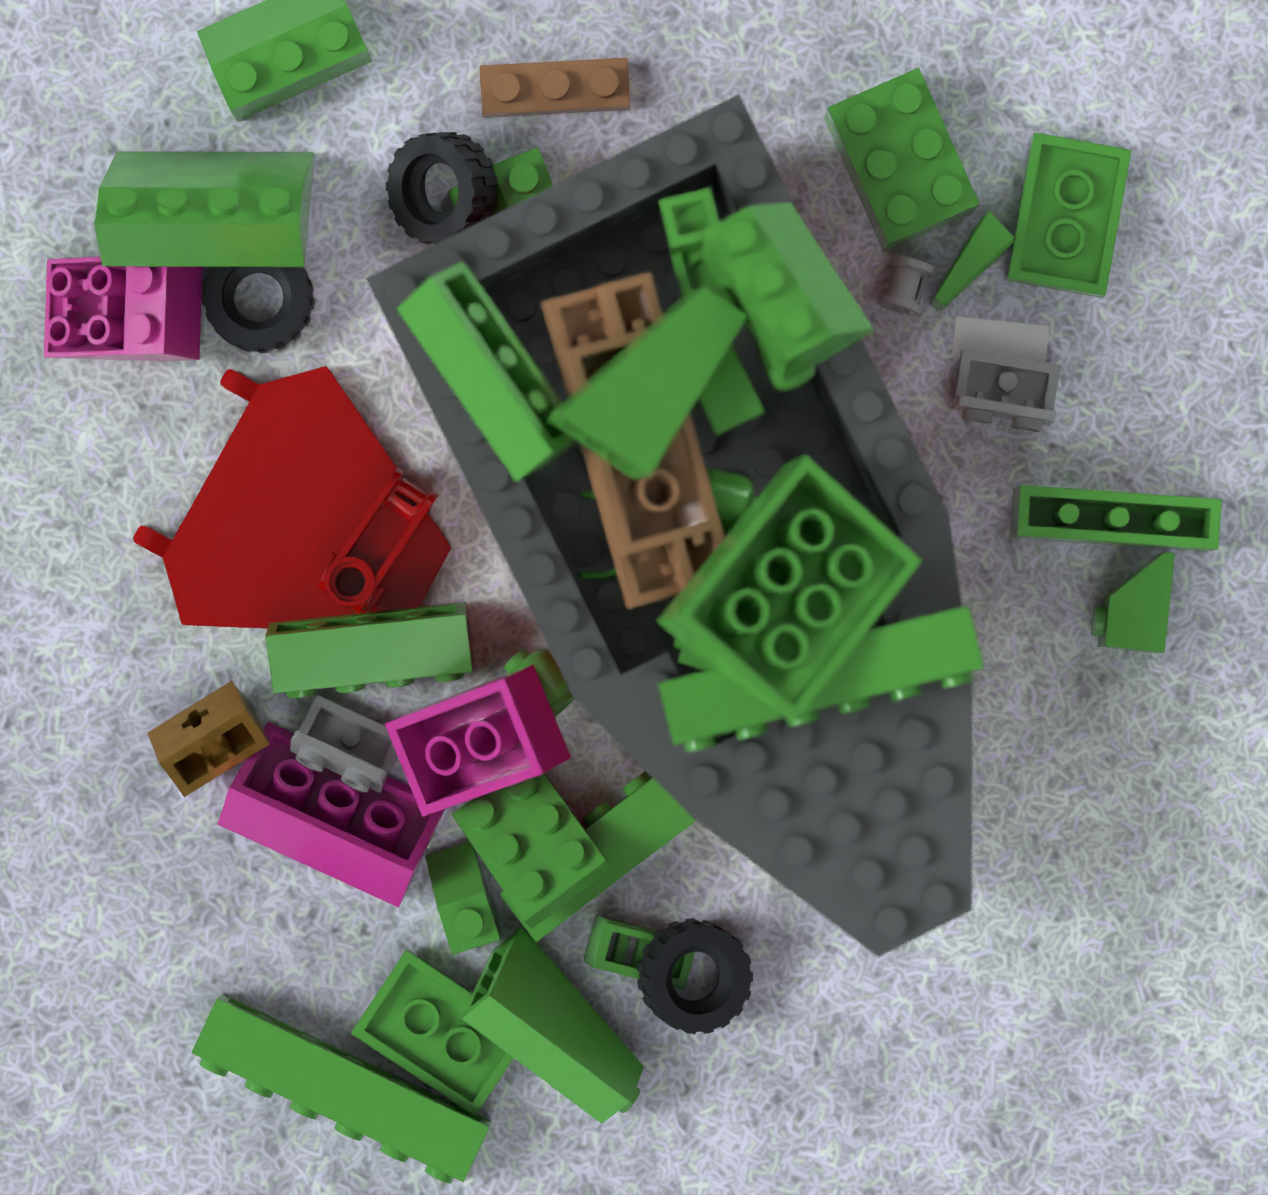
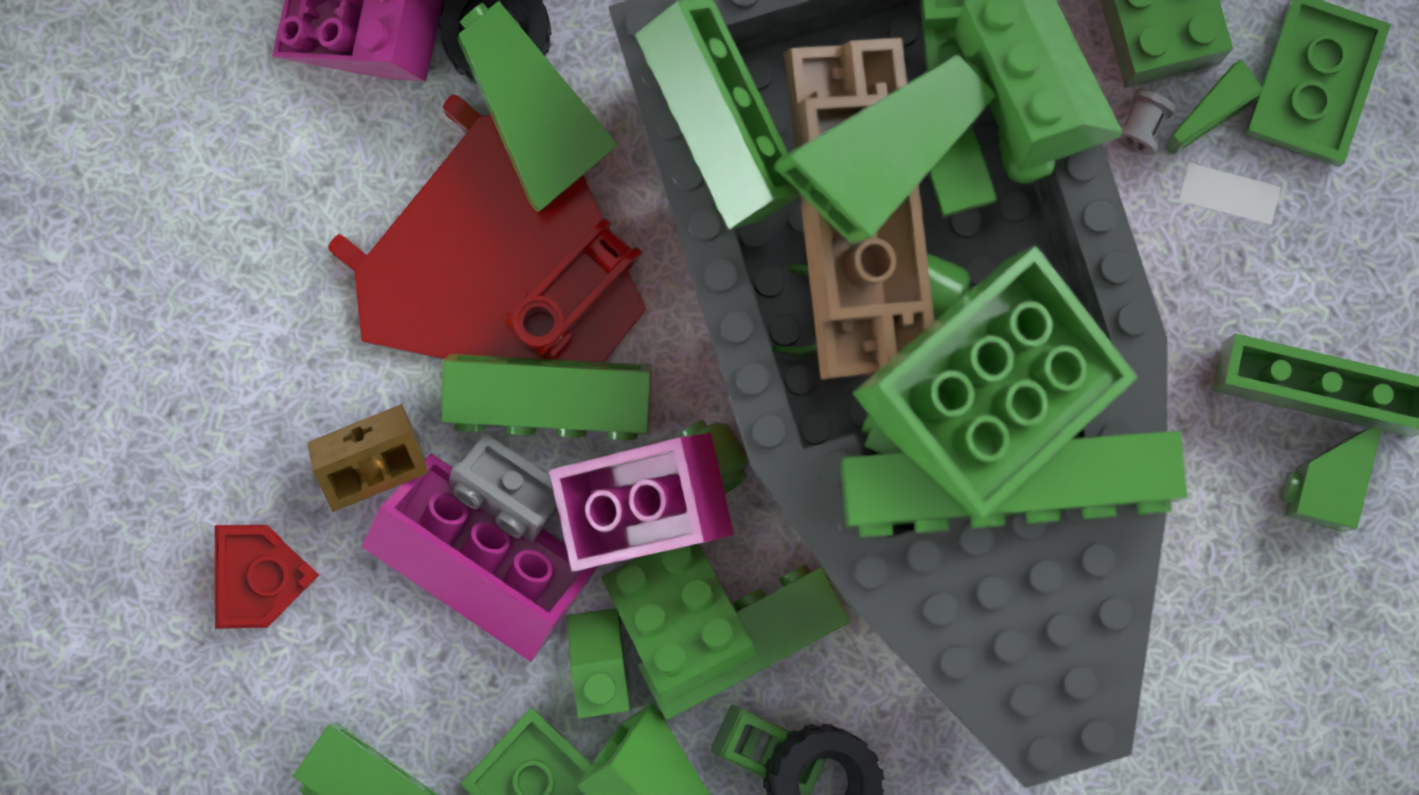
camera: 10 degrees right, 5 degrees down
(120, 869) = (255, 576): none -> red plate
(314, 379) = (536, 112): none -> bright green slope
(1006, 389) = (1230, 240): light grey bracket -> none

